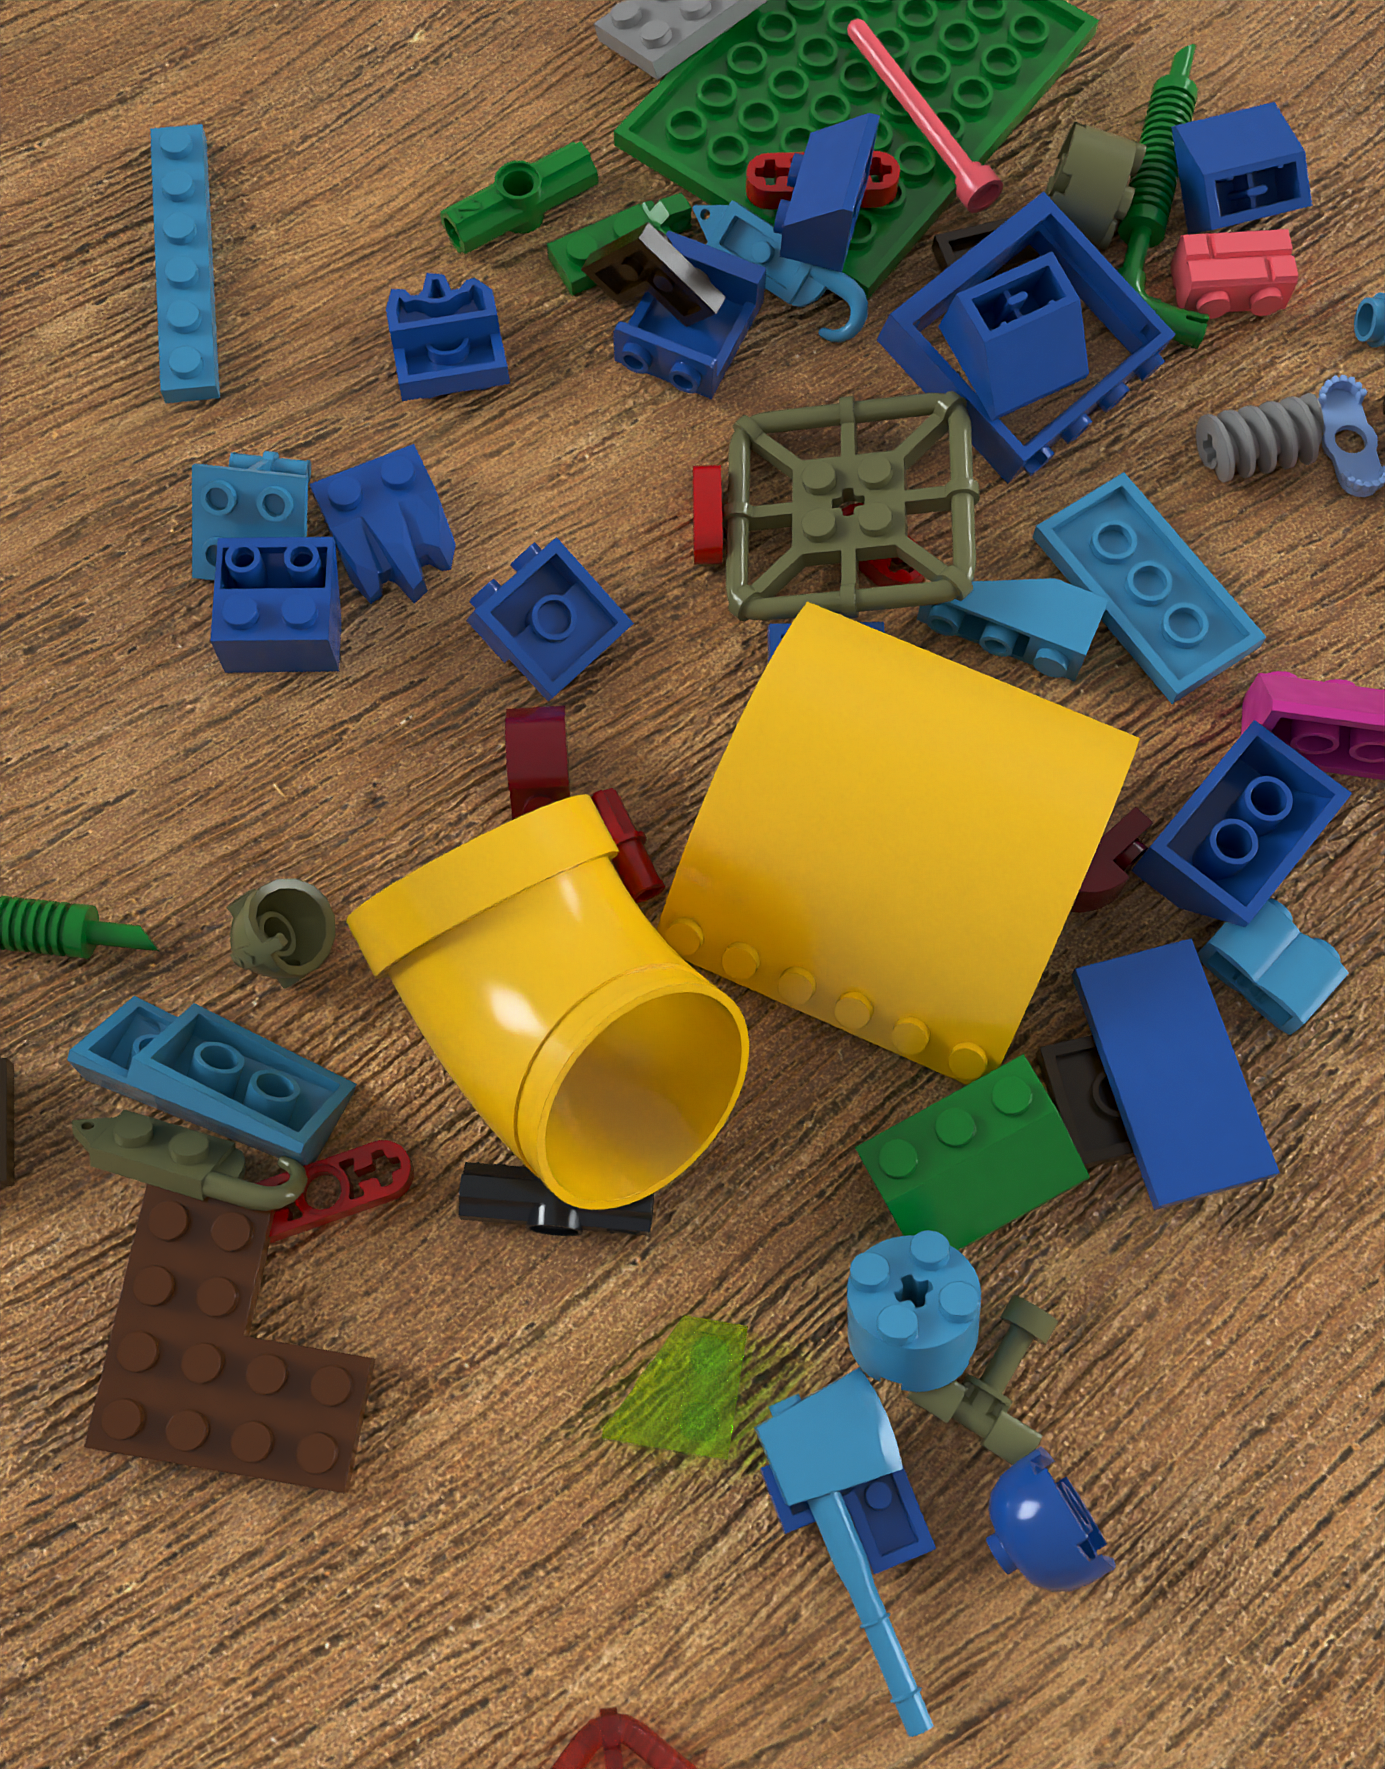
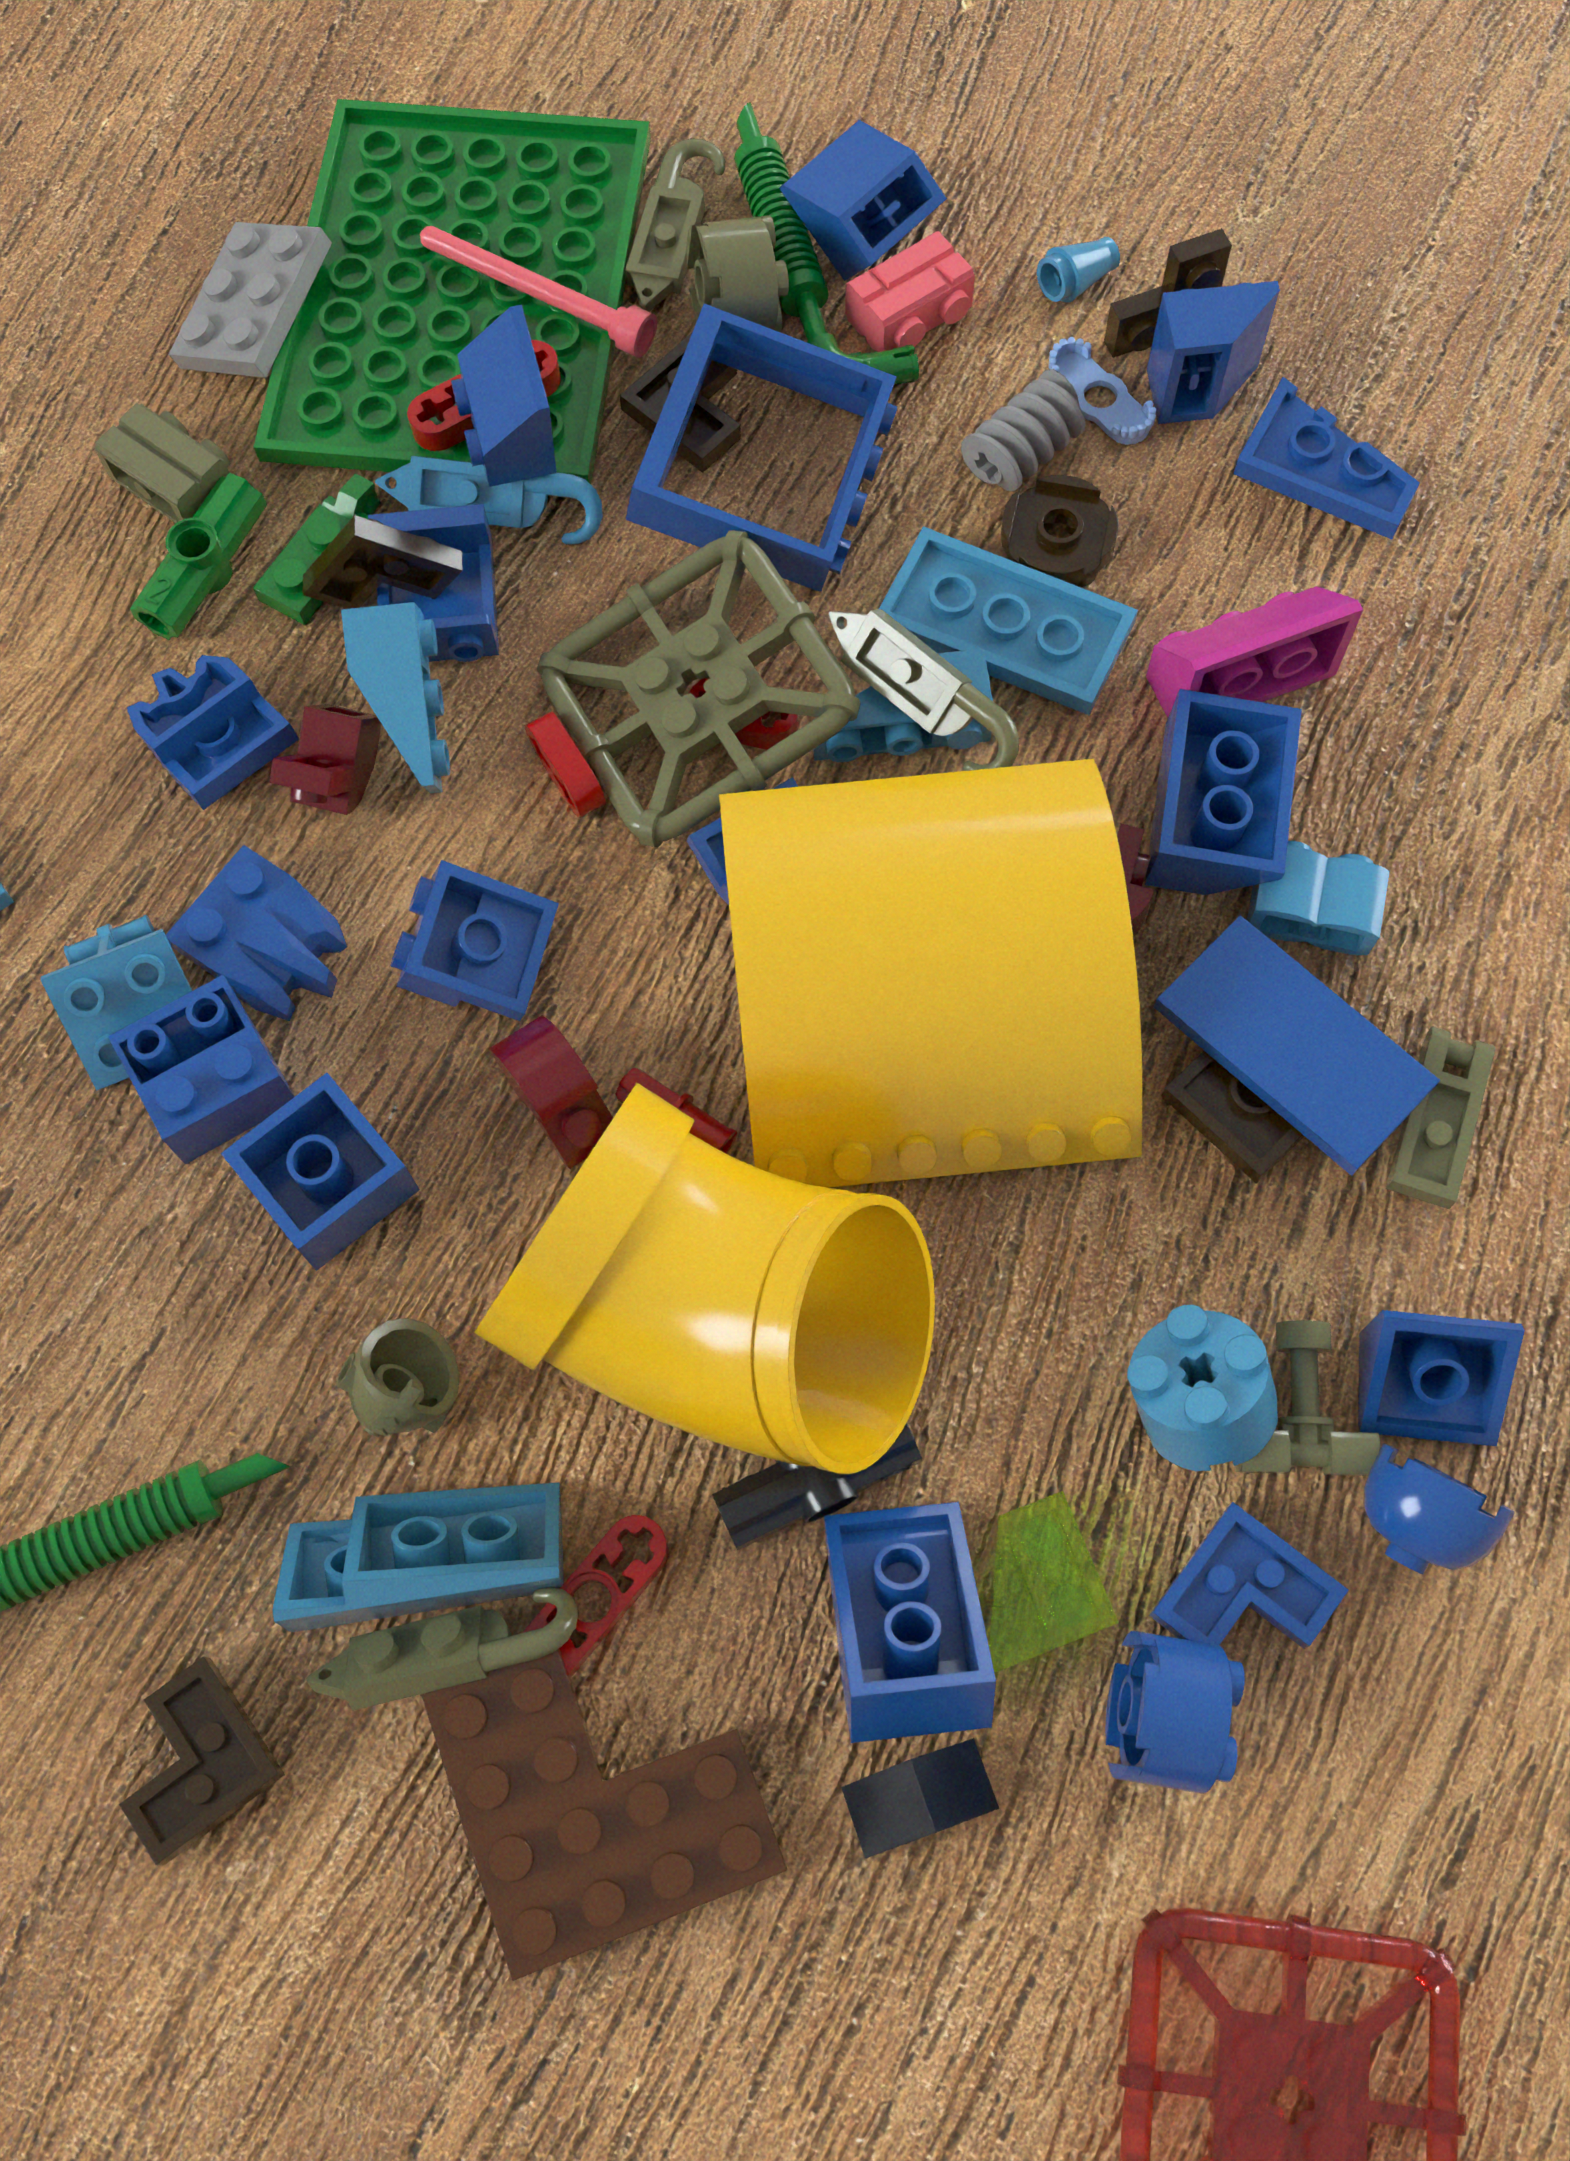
camera: 25 degrees left, 0 degrees up
(316, 733) = (321, 1171): none -> blue brick
(485, 1501) = (919, 1797): none -> black slope
(525, 413) = (332, 758): none -> dark red brick
(535, 106) = (161, 461): none -> olive brick
(557, 1356) = (908, 1623): none -> blue slope
(609, 366) = (390, 665): none -> dark azure slope
(724, 1558) = (1173, 1713): none -> blue brick
(815, 1451) = (1199, 1560): dark azure piece -> none
(975, 1158) = (1171, 1220): green slope -> none
(1018, 335) = (764, 448): blue slope -> none
(1034, 597) = (920, 681): none -> plate
(1081, 98) = (673, 205): none -> olive plate
(1123, 1419) = (1436, 1376): none -> blue slope
(1265, 1211) = (1442, 1127): none -> olive plate
(1271, 539) = (1068, 502): none -> dark brown plate

